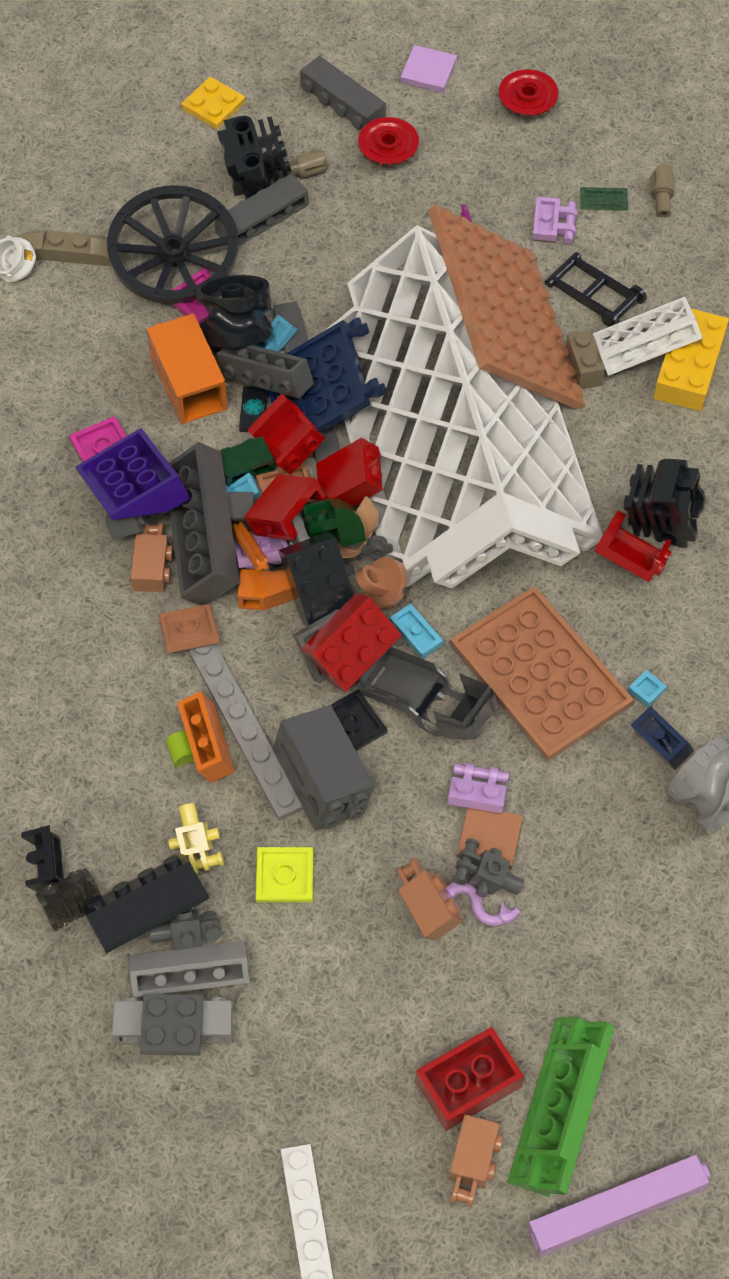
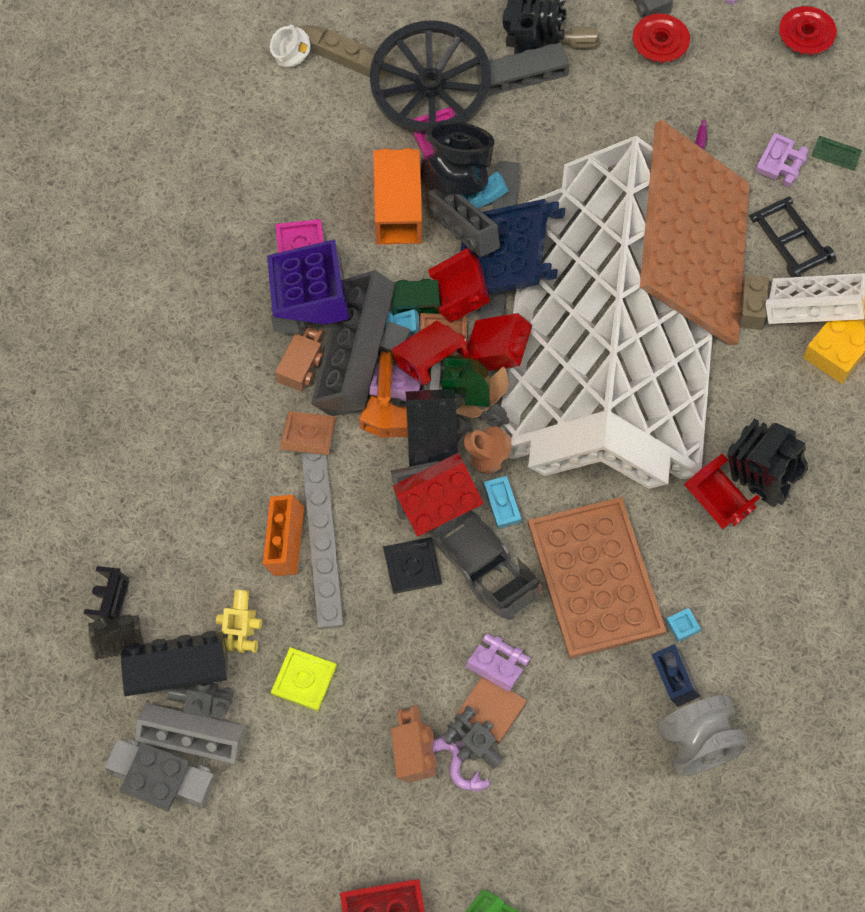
camera: 20 degrees right, 5 degrees up
(179, 749) = (257, 536): lime brick -> none
(252, 406) = (443, 248): black tile -> none
(323, 767) = (369, 598): dark grey brick -> none

